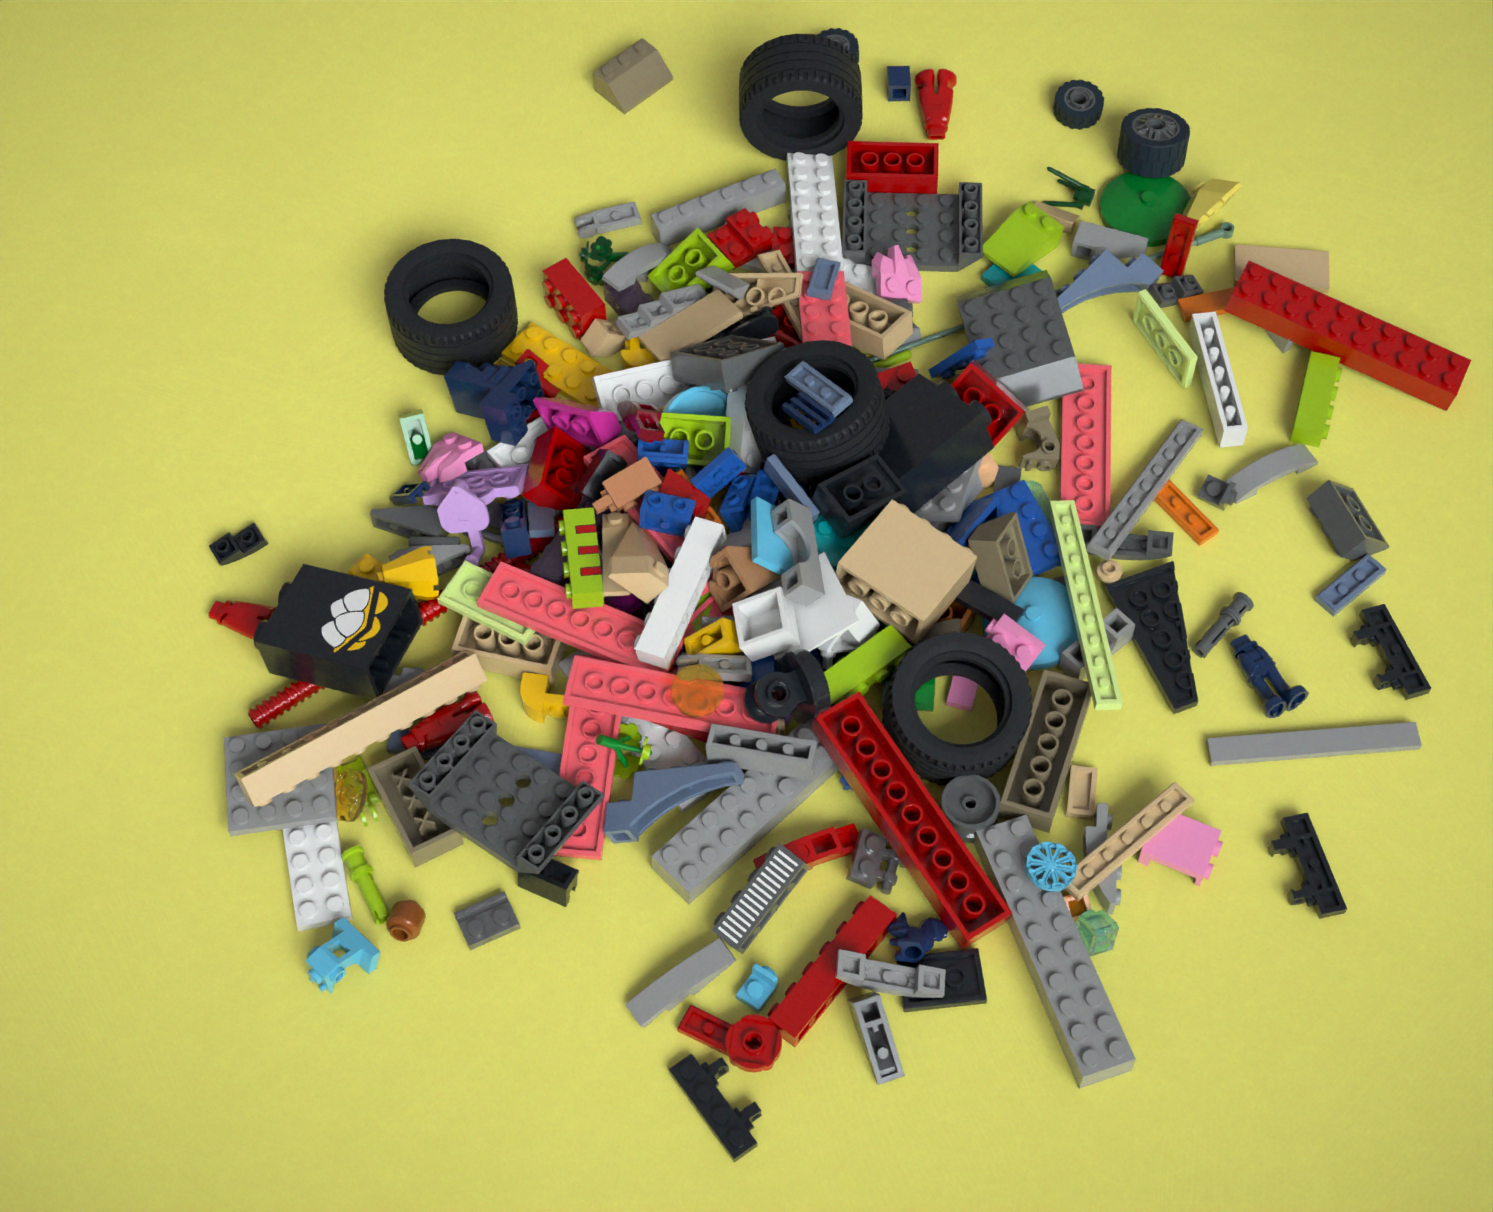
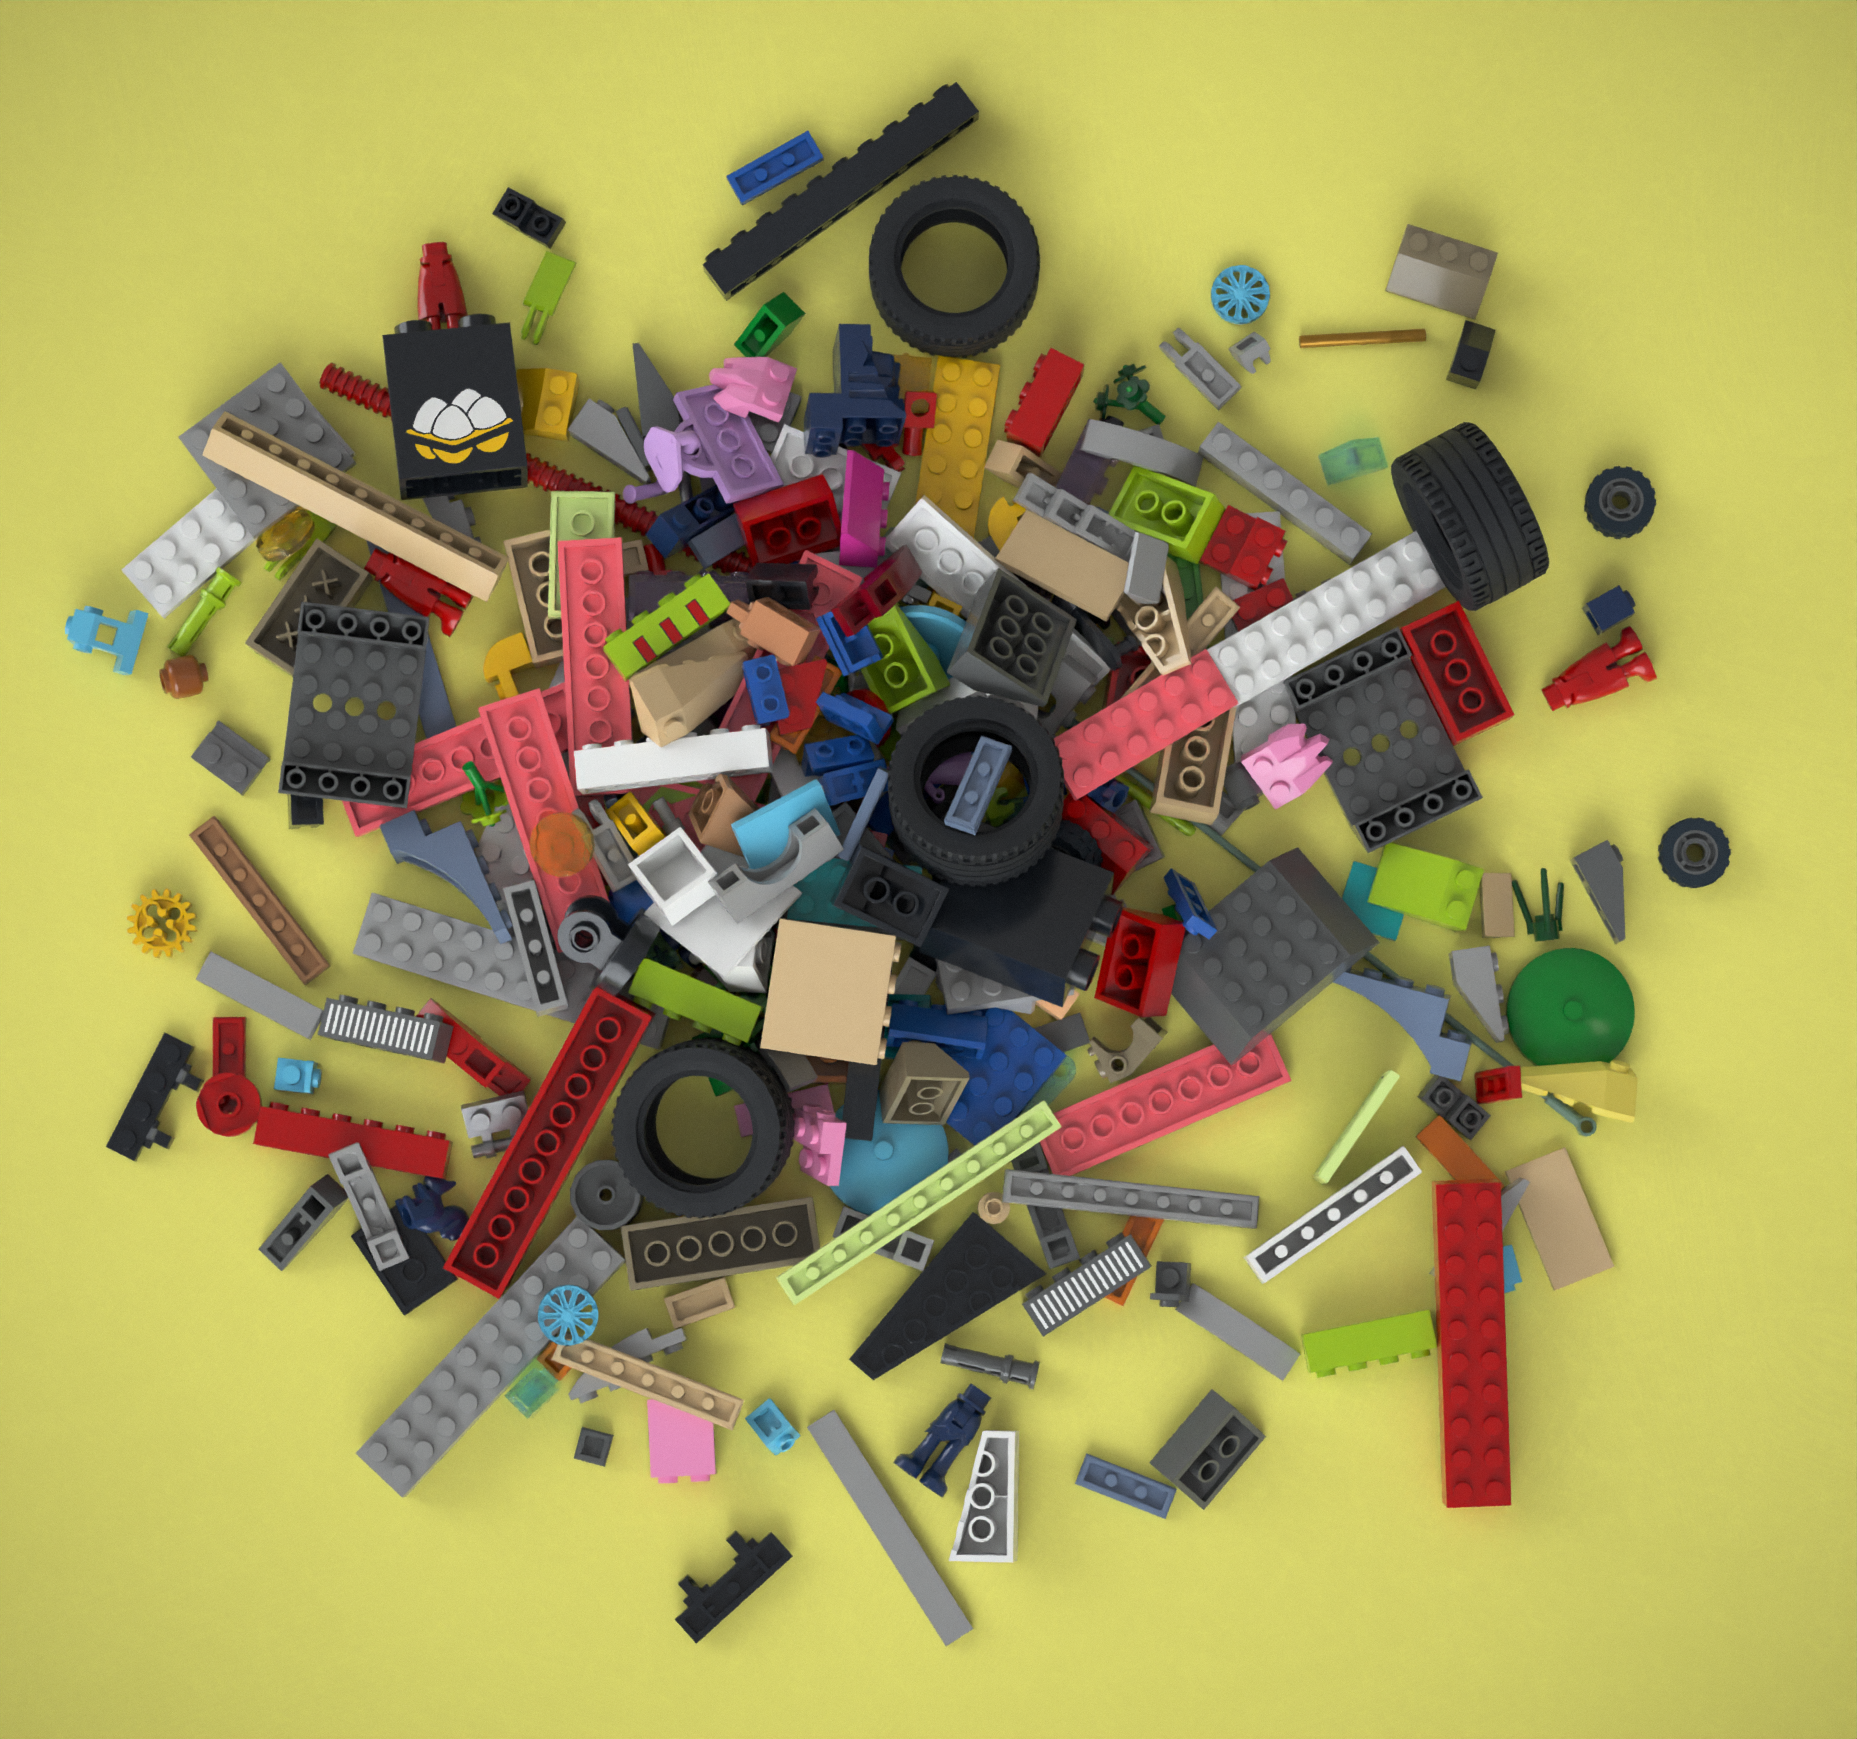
camera: 60 degrees right, 25 degrees up
(293, 552) = (546, 291): none -> lime arm
(312, 387) = (775, 168): none -> blue plate
(355, 360) = (840, 190): none -> black brick
(412, 489) = (682, 382): dark blue tile -> none
(413, 571) = (562, 444): yellow cone -> none
(573, 1040) = (165, 905): none -> yellow gear
(575, 182) = (1240, 294): none -> medium azure wheel
(607, 952) = (260, 900): none -> medium nougat tile
(616, 189) = (1250, 349): none -> light grey tile
(645, 136) = (1362, 338): none -> pearl gold bar
(696, 85) = (1471, 354): none -> black slope
(719, 170) = (1352, 460): none -> clear light blue slope
(811, 409) = (946, 768): dark blue tile -> none
(823, 279) = (1202, 689): sand blue tile -> none
(1073, 154) = (1603, 881): none -> dark grey slope
(1153, 142) = (1662, 978): black wheel -> none
(1156, 915) = (593, 1446): none -> dark grey tile
(1193, 540) = (1087, 1284): none -> dark grey brick
(1201, 782) = (772, 1427): none -> medium azure bracket
(1325, 663) = (991, 1502): none -> white wedge
(1402, 667) = (1035, 1589): black hinge -> none

